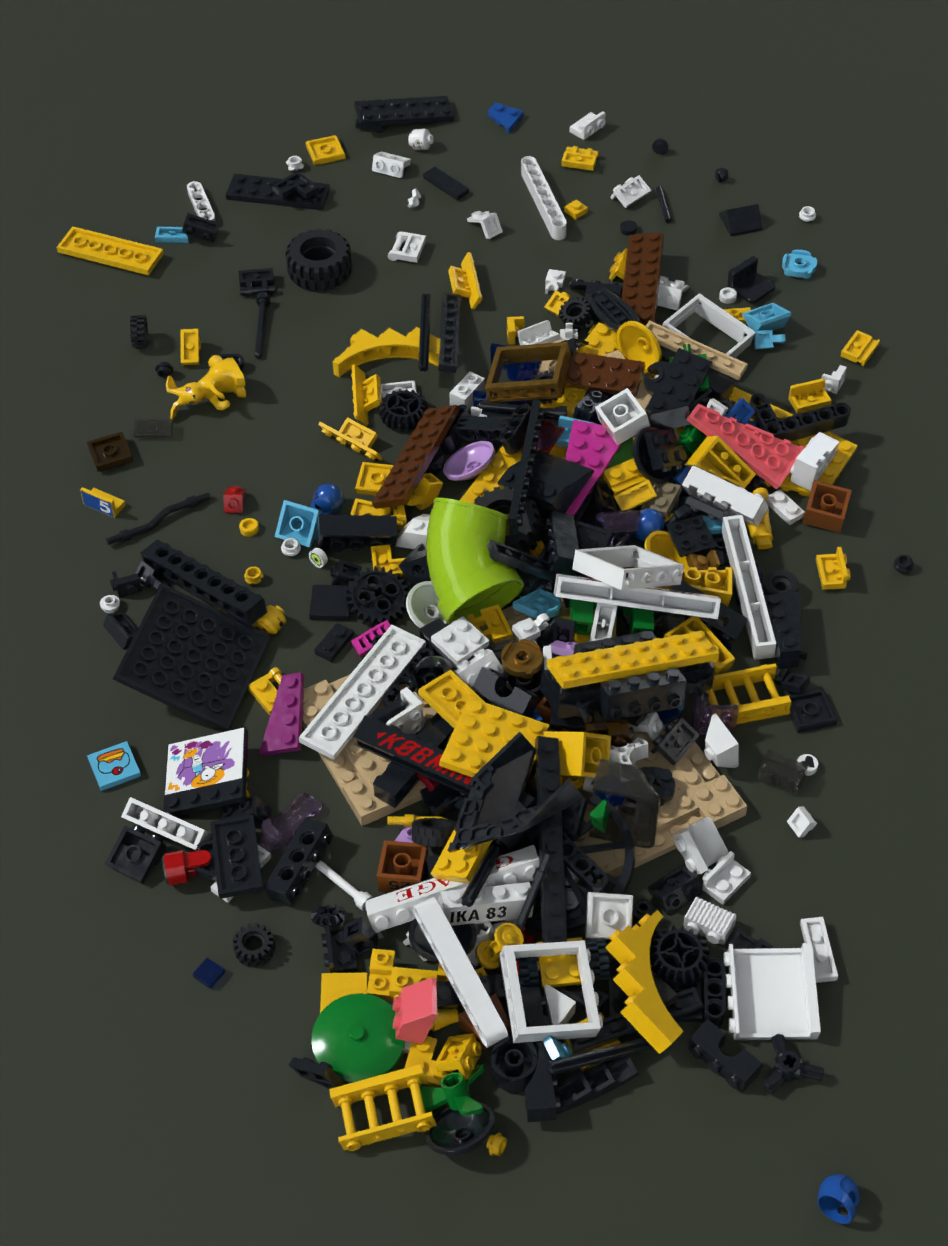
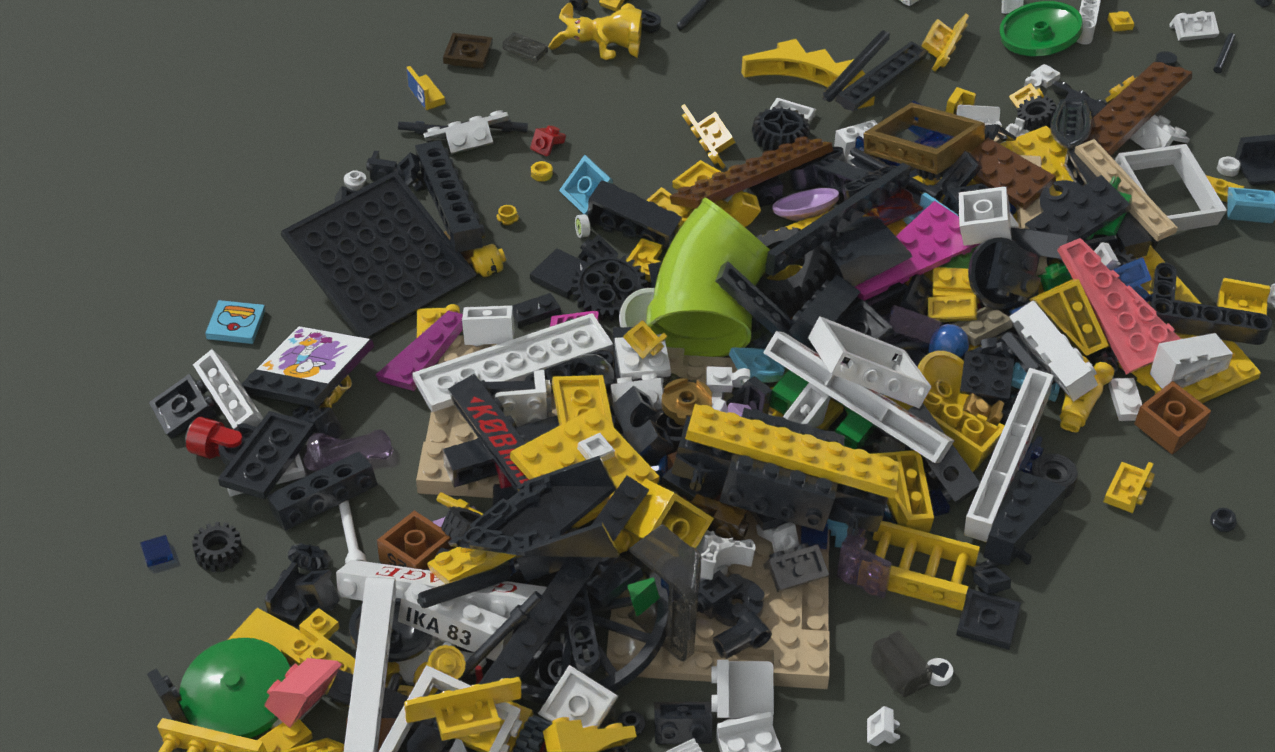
camera: 30 degrees right, 5 degrees down
(172, 524) = (468, 134): none -> white bracket
(290, 547) = (564, 205): white plate -> none
(326, 671) = (488, 325): none -> white brick
(328, 498) = (635, 177): blue helmet -> none
(365, 394) = (753, 99): yellow bracket -> none
(444, 1018) = (329, 713): yellow cone -> none
(461, 628) = (644, 340): none -> yellow bracket
(495, 623) = (698, 356): yellow plate -> none
(497, 728) = (596, 446): none -> white tile
(529, 241) = (1041, 28): none -> green dish
(555, 962) = (465, 709): none -> yellow bracket
(573, 390) = (960, 172): none -> black plate
(638, 343) = (1063, 154): yellow dish -> none
(678, 806) = (747, 632): none -> black piece
(721, 745) = (843, 597): white slope -> none
(764, 339) = (1236, 223): medium azure plate -> none

